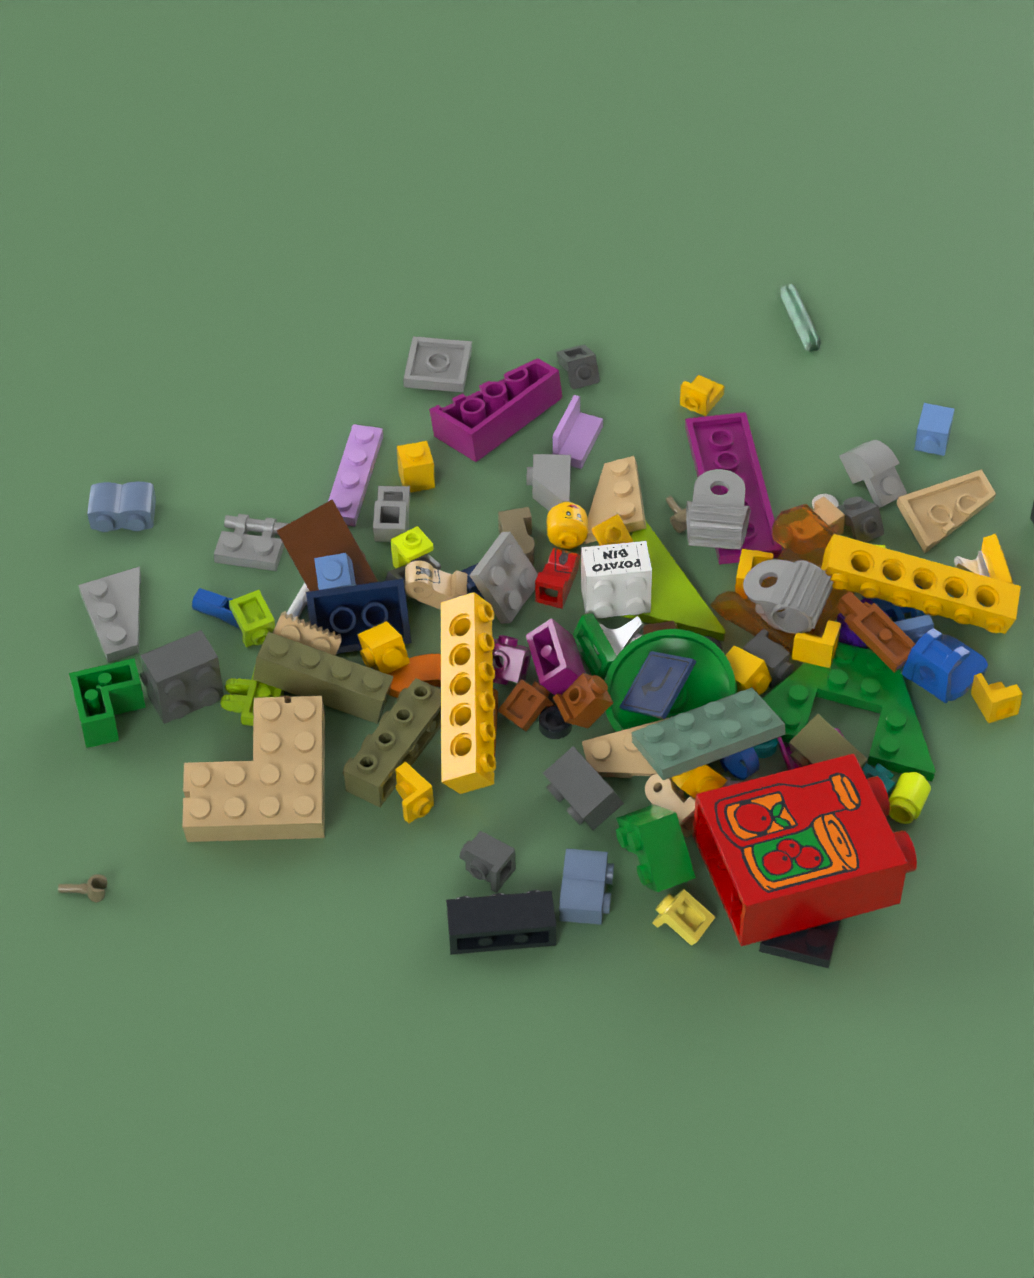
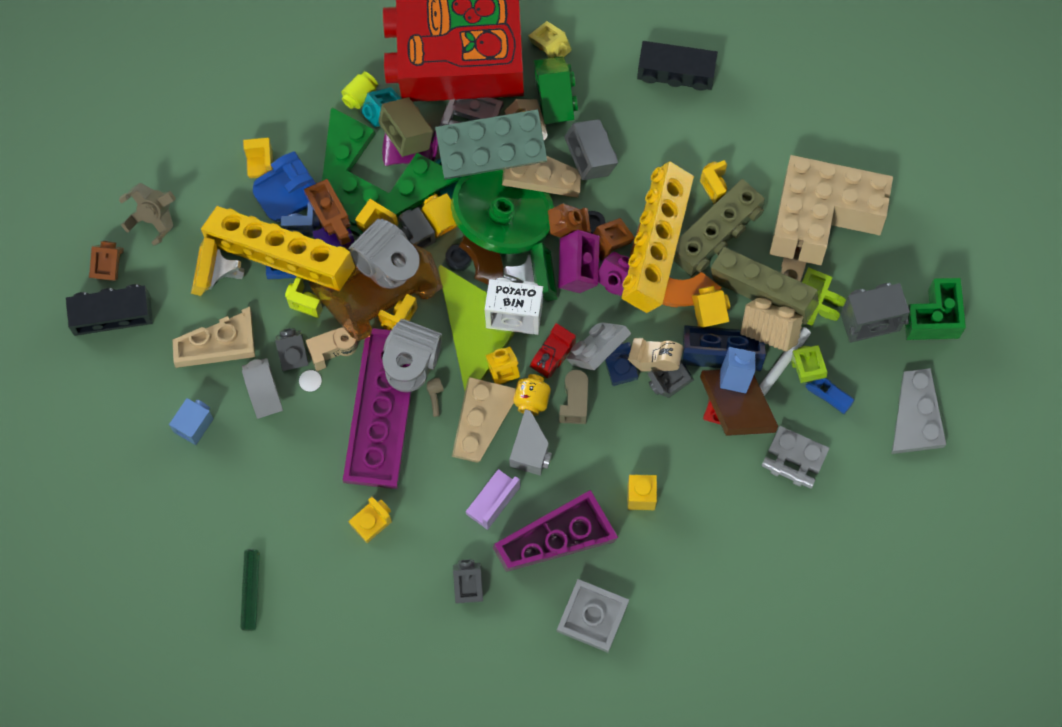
camera: 165 degrees left, 20 degrees up
(93, 894) = (964, 169): dark tan hand -> none
(121, 506) = (901, 517): sand blue brick -> none
(356, 471) = (694, 510): lavender plate -> none
(391, 512) = (675, 437): light grey brick -> none
(409, 546) = (666, 397): neon yellow bracket -> none
(489, 860) = (673, 114): dark grey brick -> none
(584, 886) = (611, 78): sand blue brick -> none
(657, 684) = (513, 197): dark blue piece -> none

